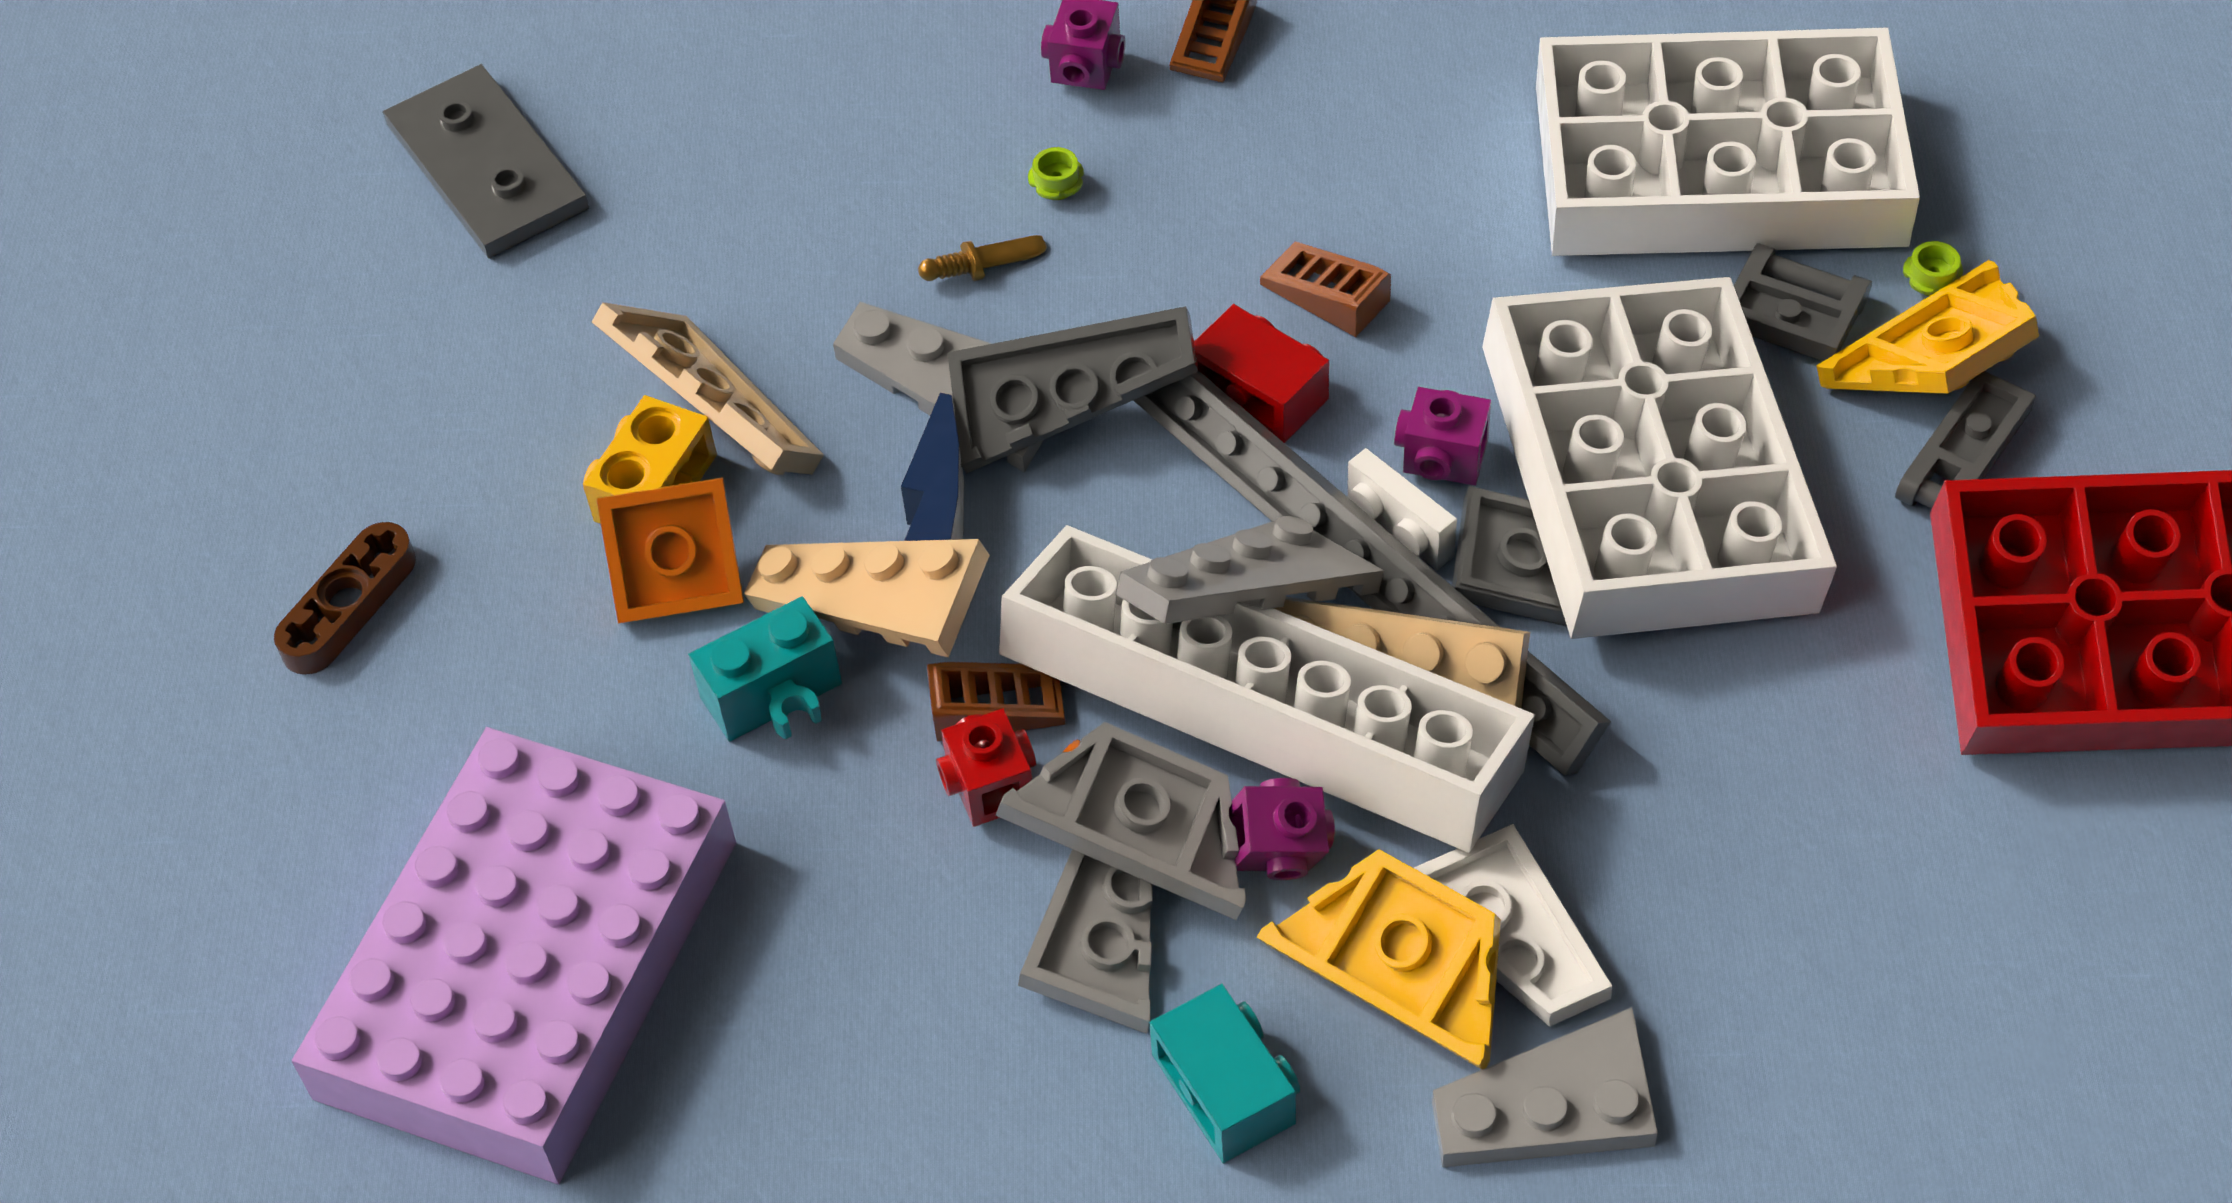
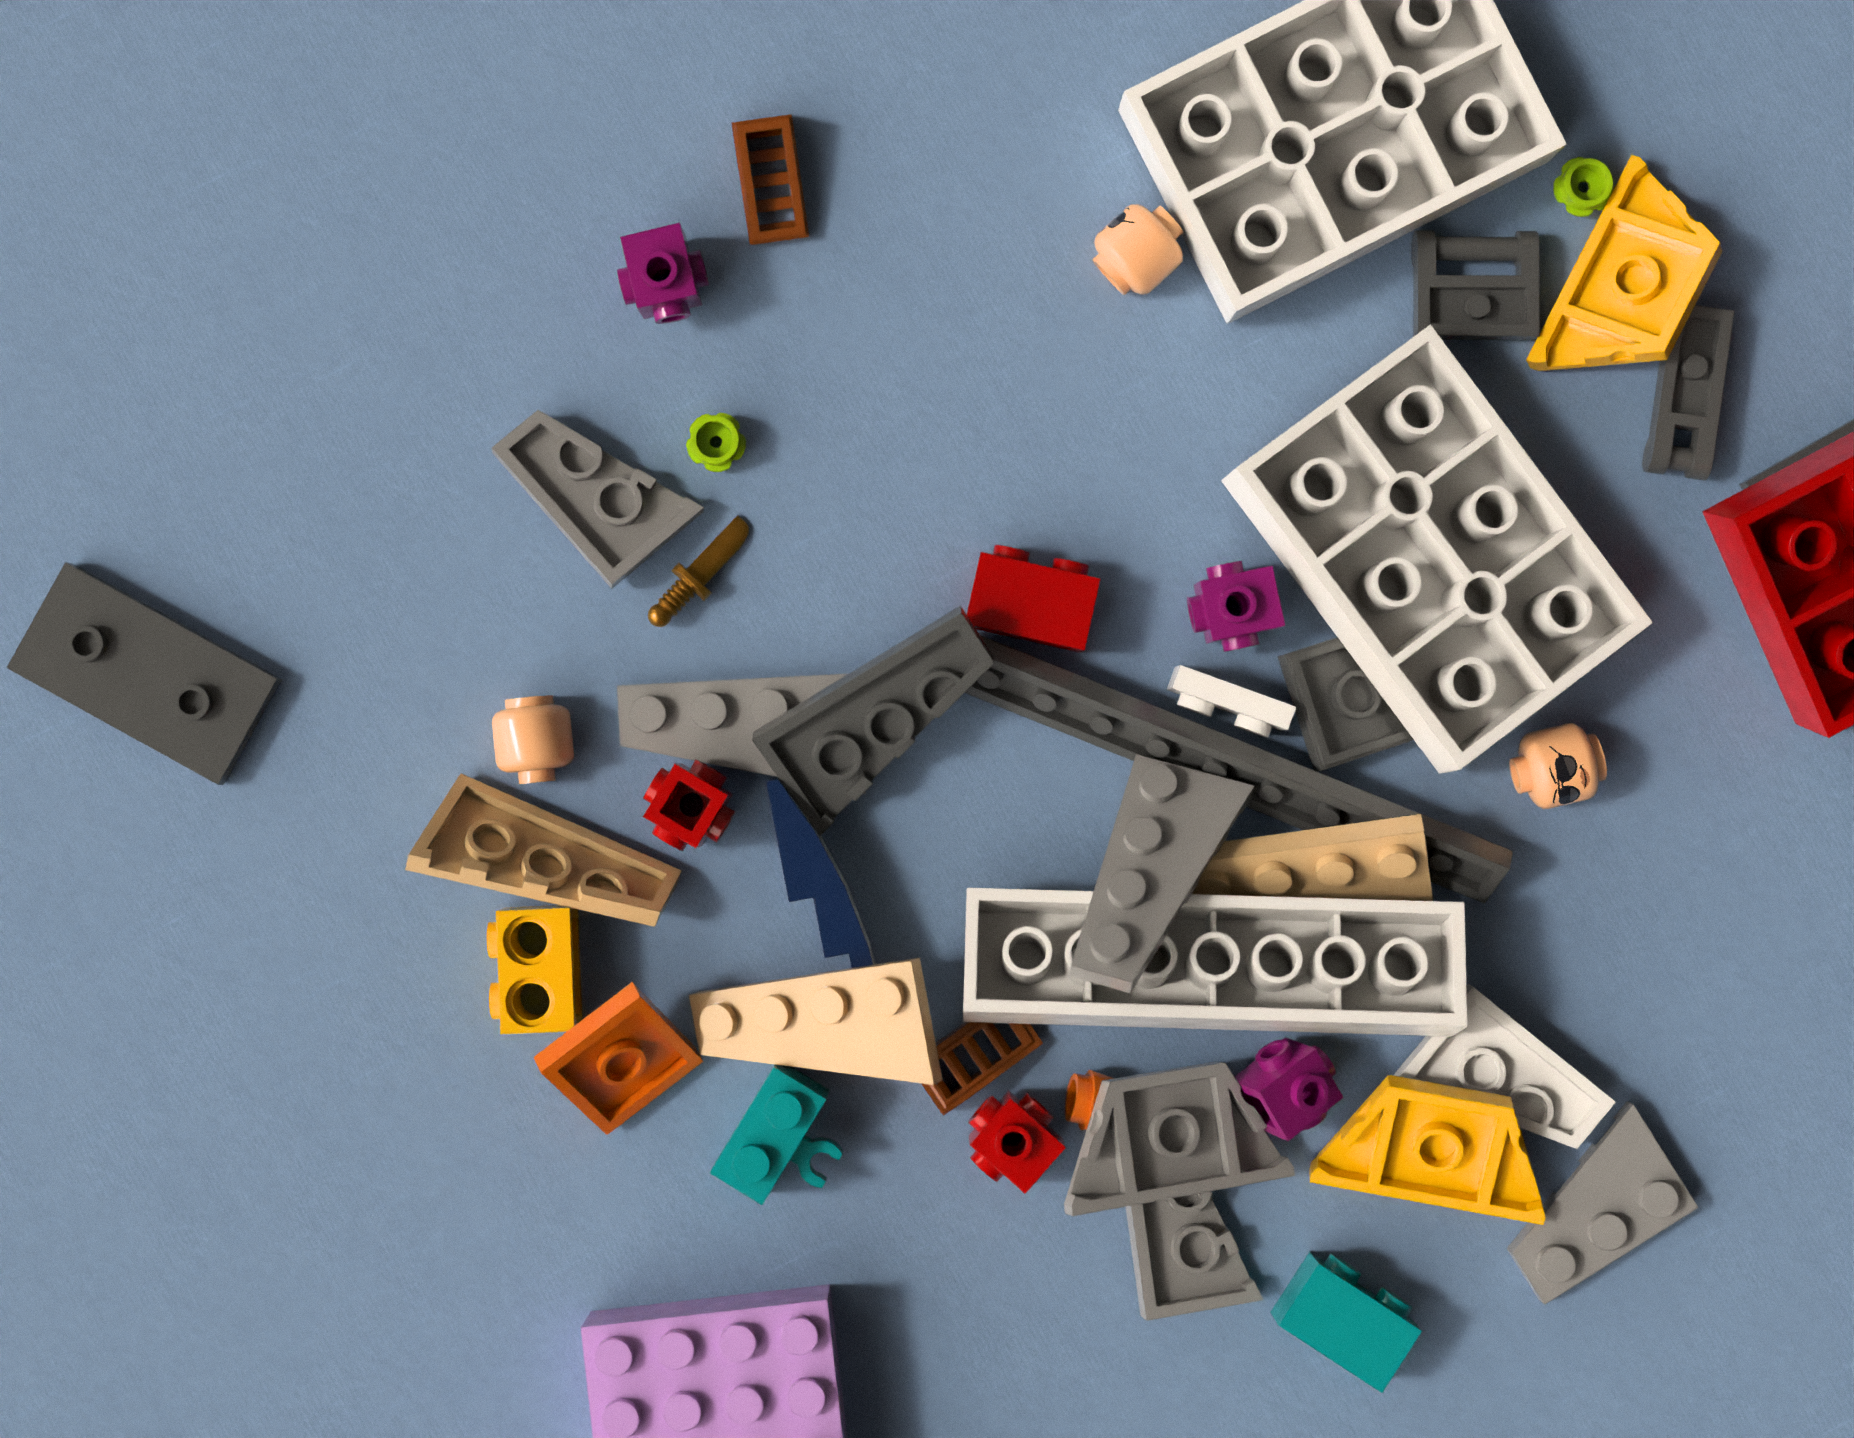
camera: 30 degrees left, 35 degrees up
(343, 623) = (358, 1266): reddish brown beam -> none
(764, 307) = (532, 738): none -> light nougat head
(861, 392) = (666, 812): none -> red brick
(928, 176) = (594, 499): none -> light grey wing
(1348, 312) = (1080, 488): dark orange slope -> none
(1499, 170) = (1138, 249): none -> light nougat head
(1693, 677) = (1558, 766): none -> light nougat head

